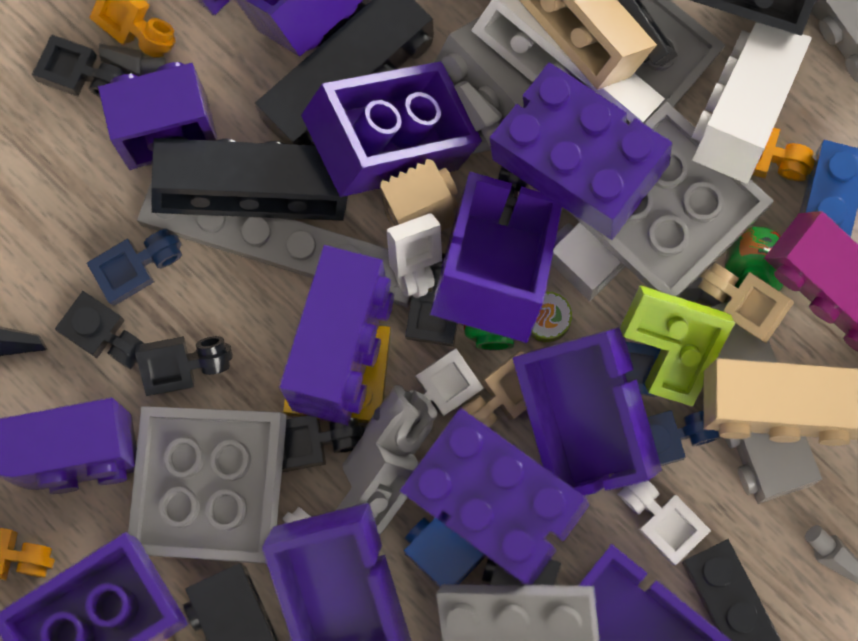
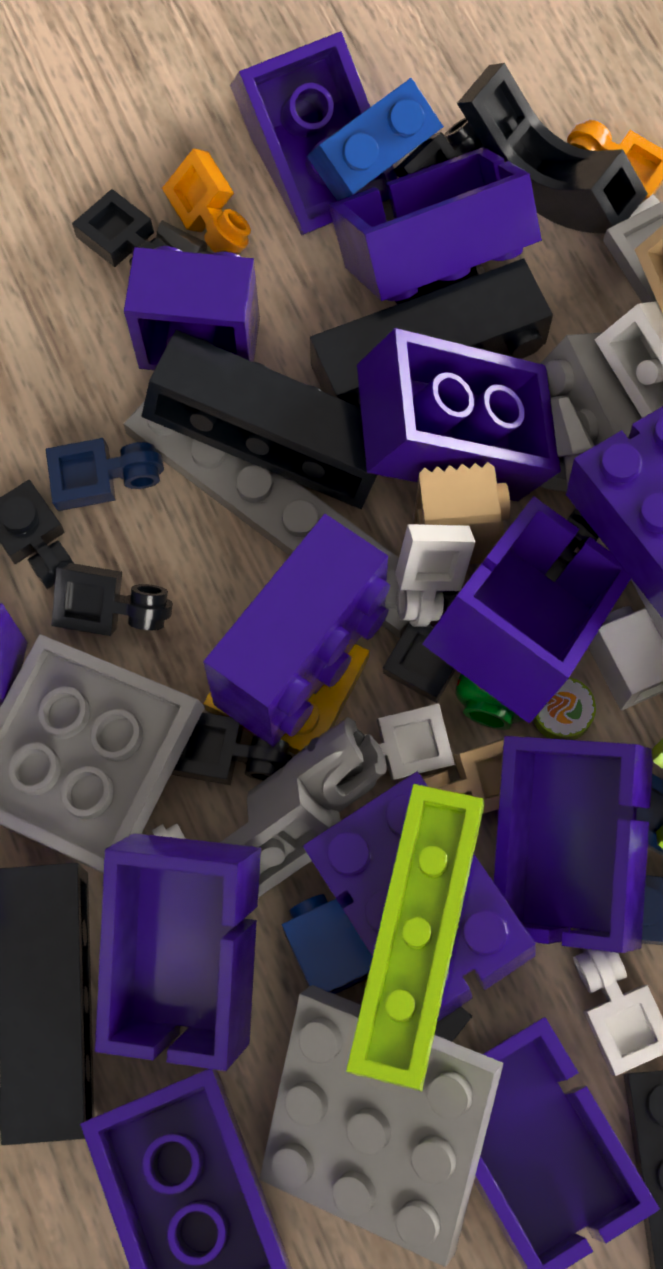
camera: 15 degrees right, 5 degrees down
(503, 523) = (416, 938): none -> lime plate

